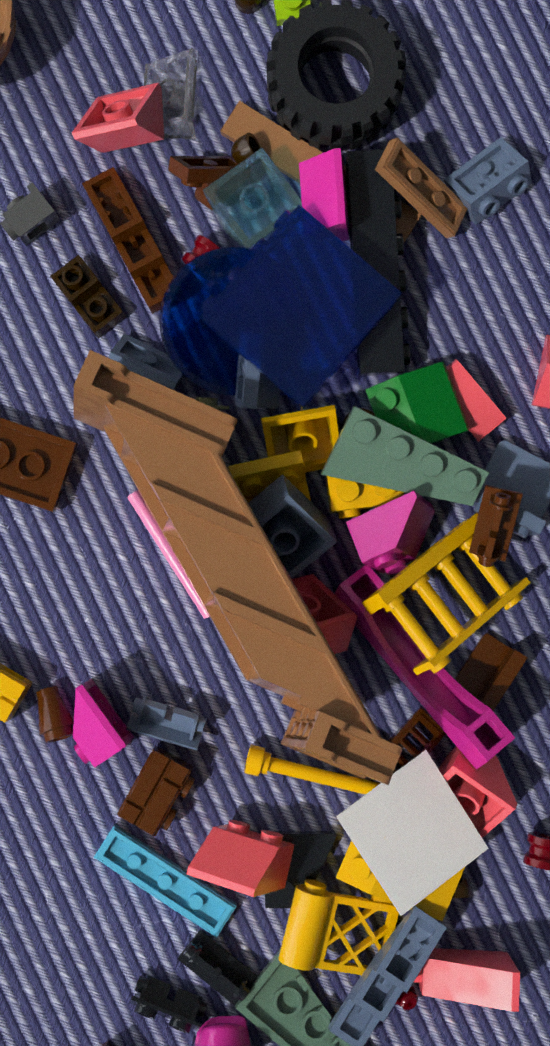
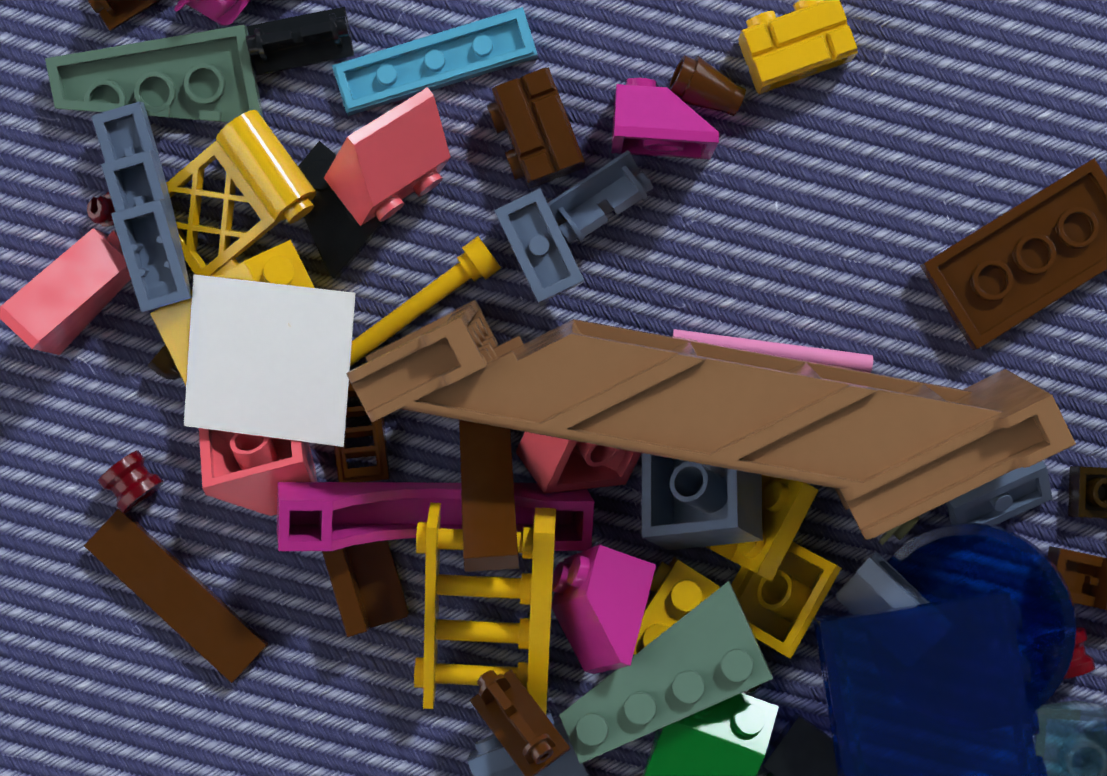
camera: 135 degrees right, 0 degrees up
(222, 734) = (539, 246): none -> sand blue panel
(388, 644) = (487, 498): none -> reddish brown tile

